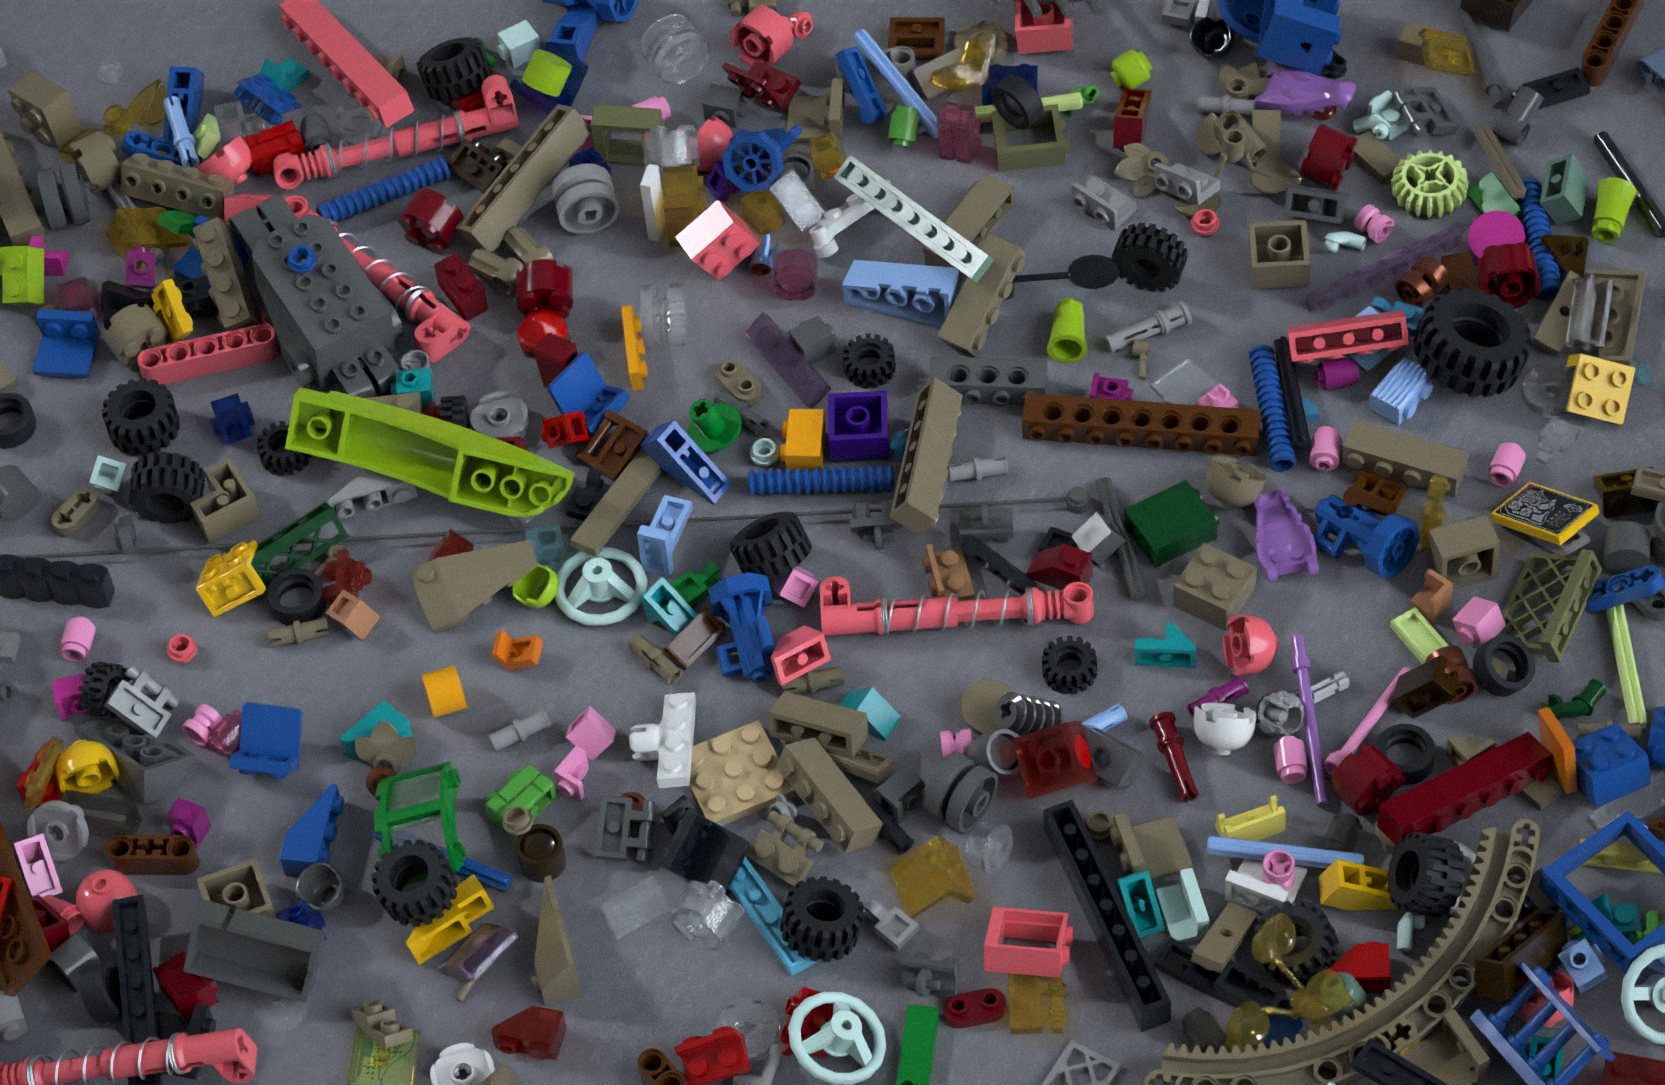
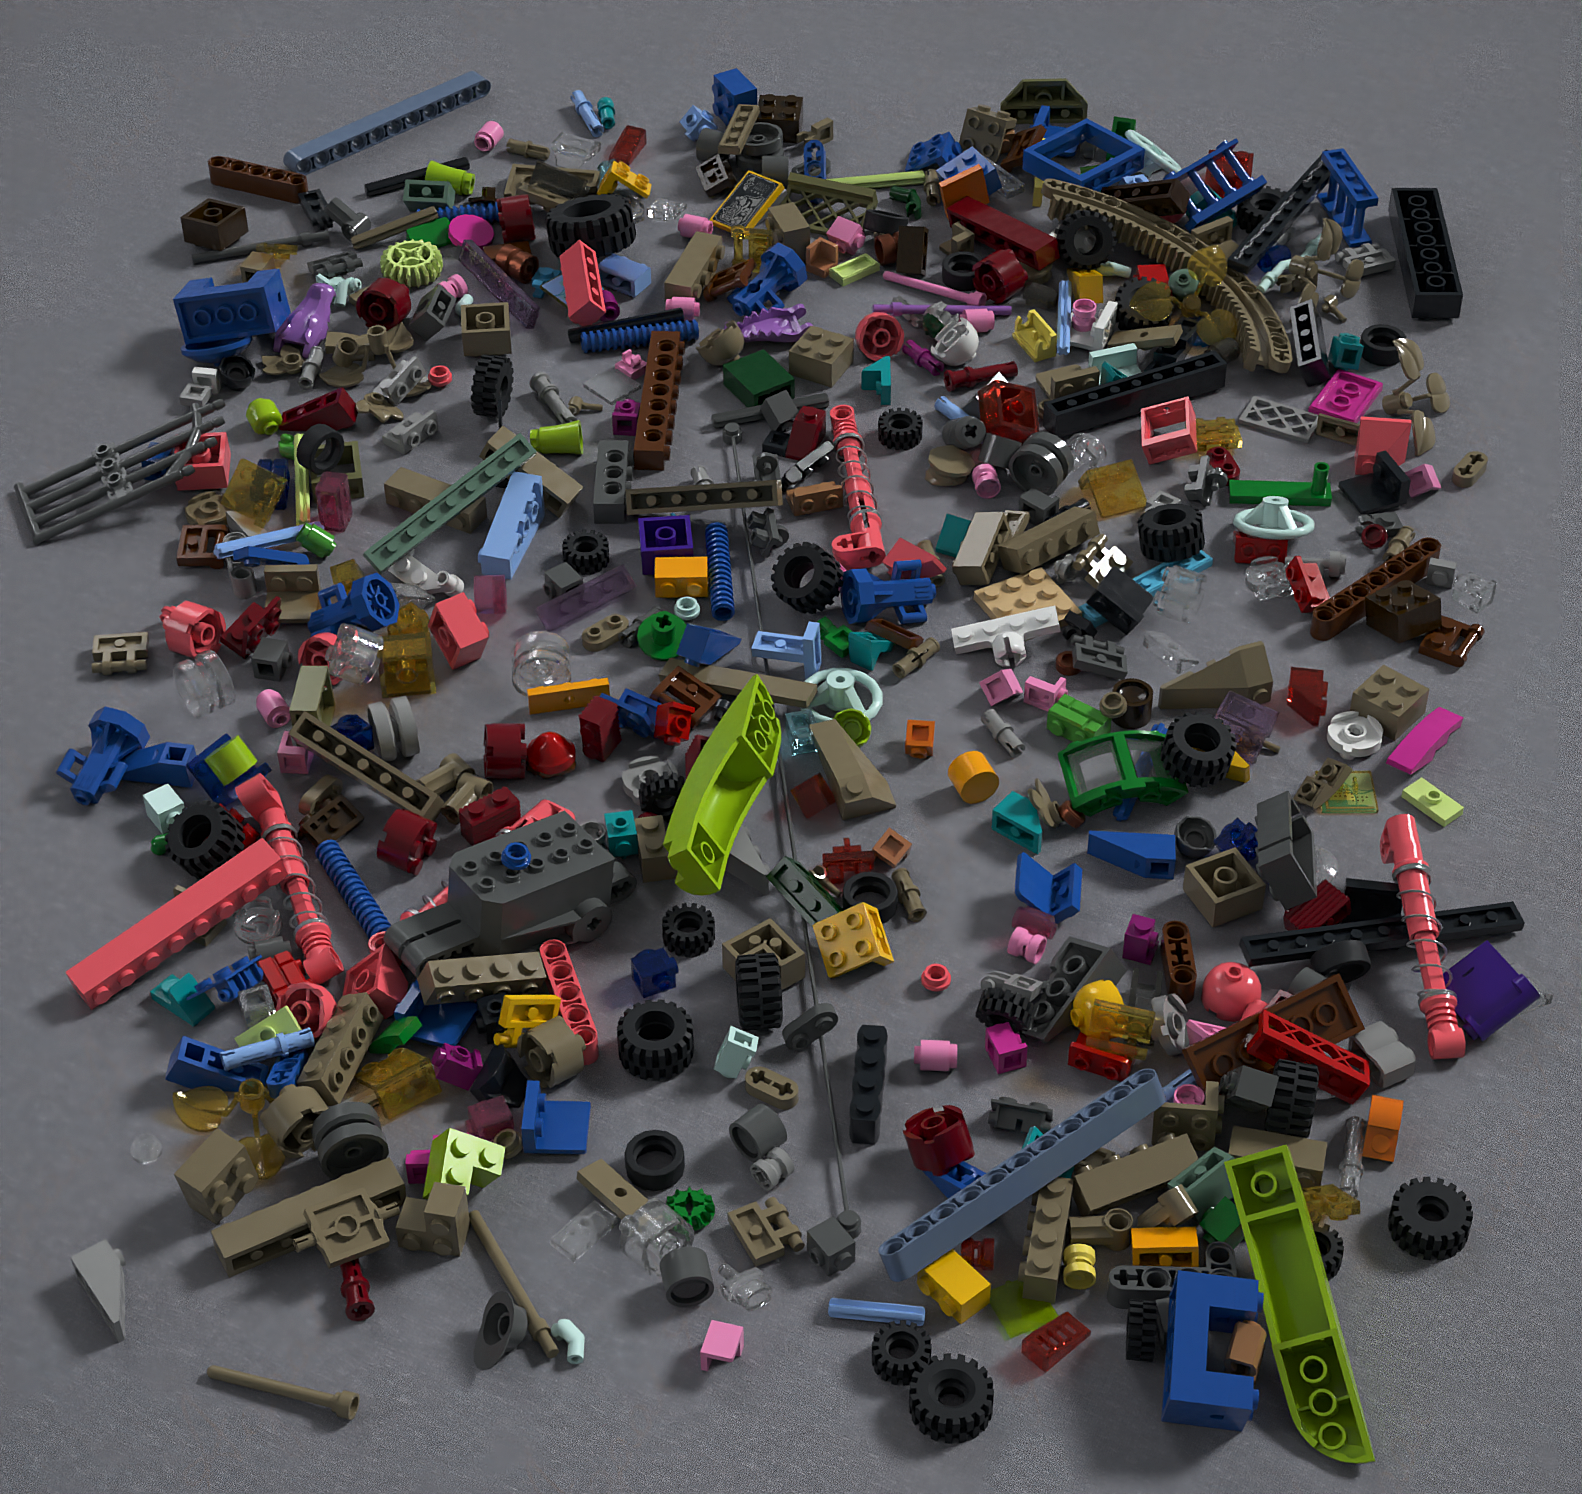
camera: 100 degrees left, 10 degrees down
(653, 202) = (411, 671): white tile -> none

